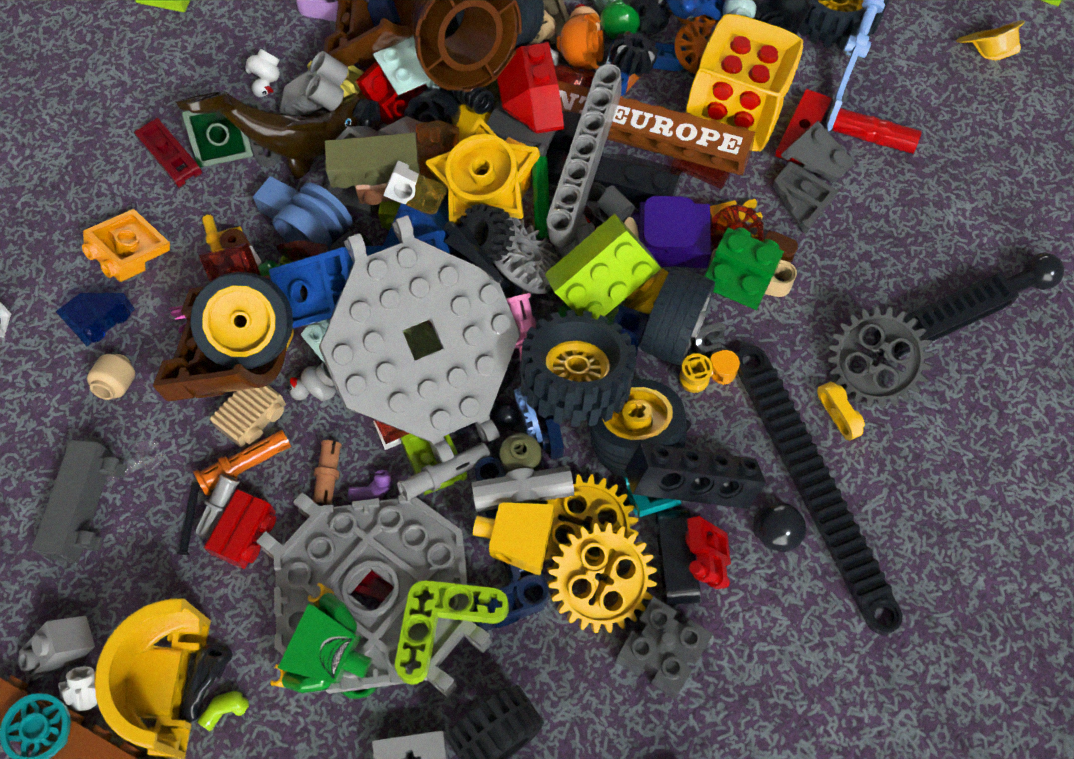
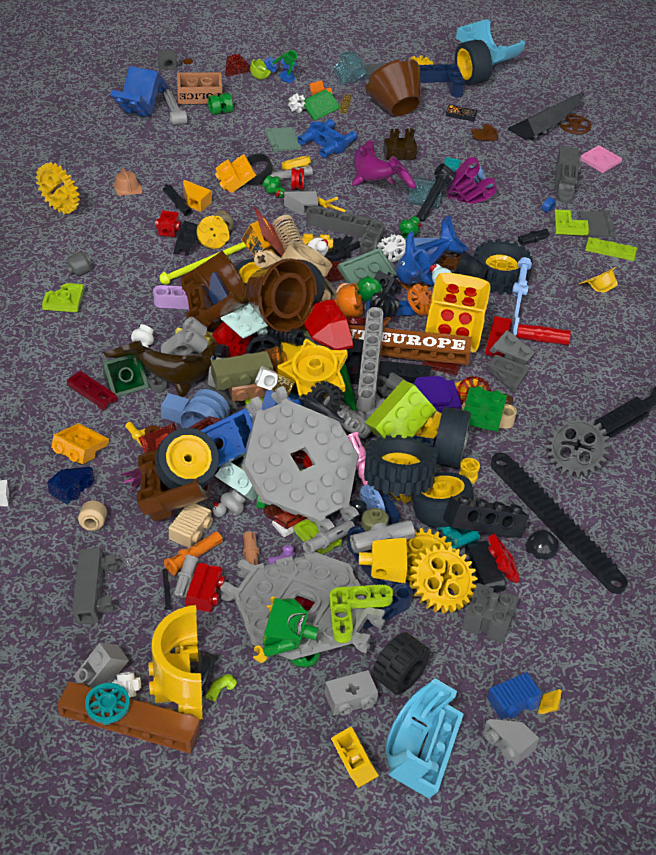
camera: 15 degrees left, 20 degrees down
(724, 362) = (486, 462): leg -> none
(844, 416) = (562, 480): yellow plate -> none

